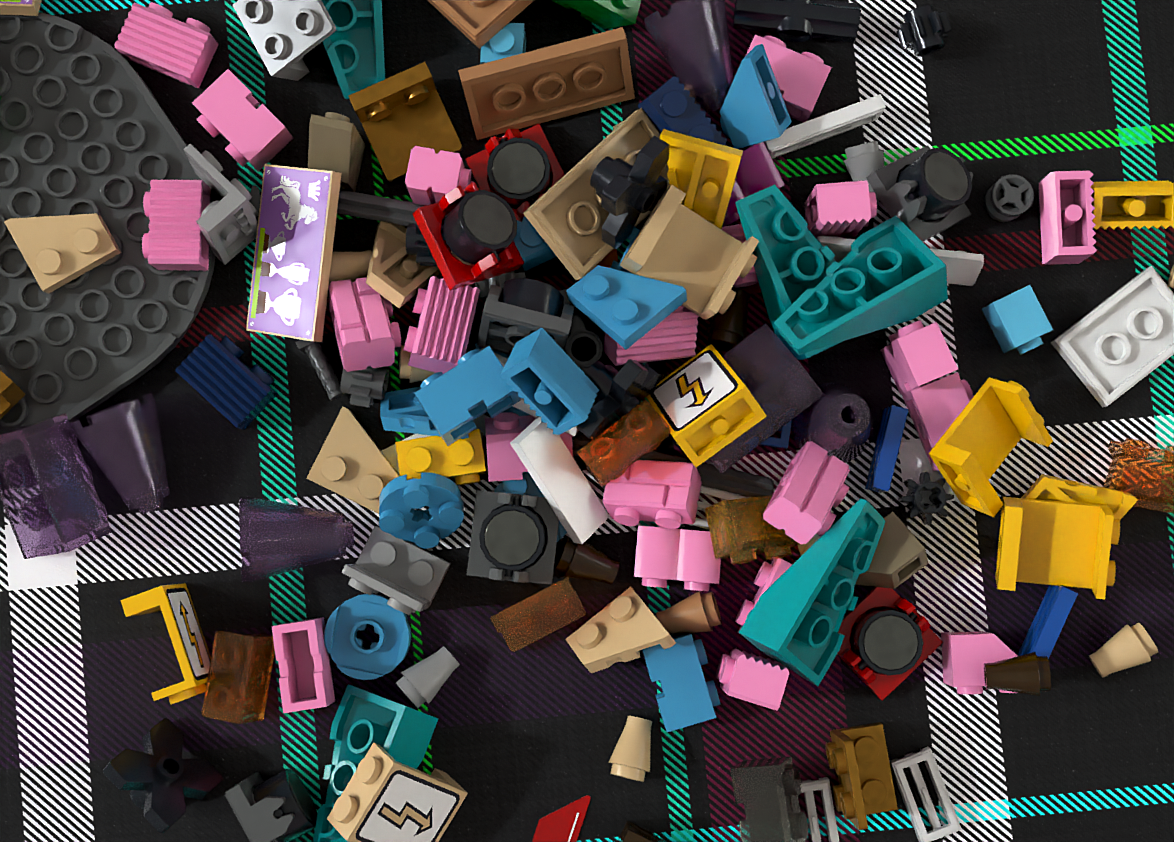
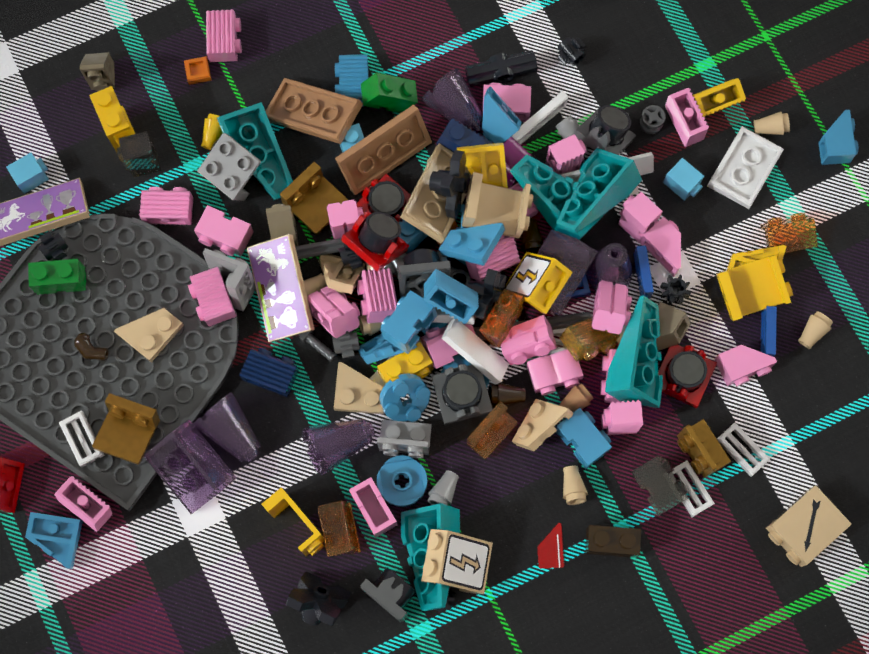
camera: 20 degrees left, 10 degrees down
(984, 438) = (692, 246): yellow panel -> none
(1019, 674) = (763, 358): dark brown cone -> none

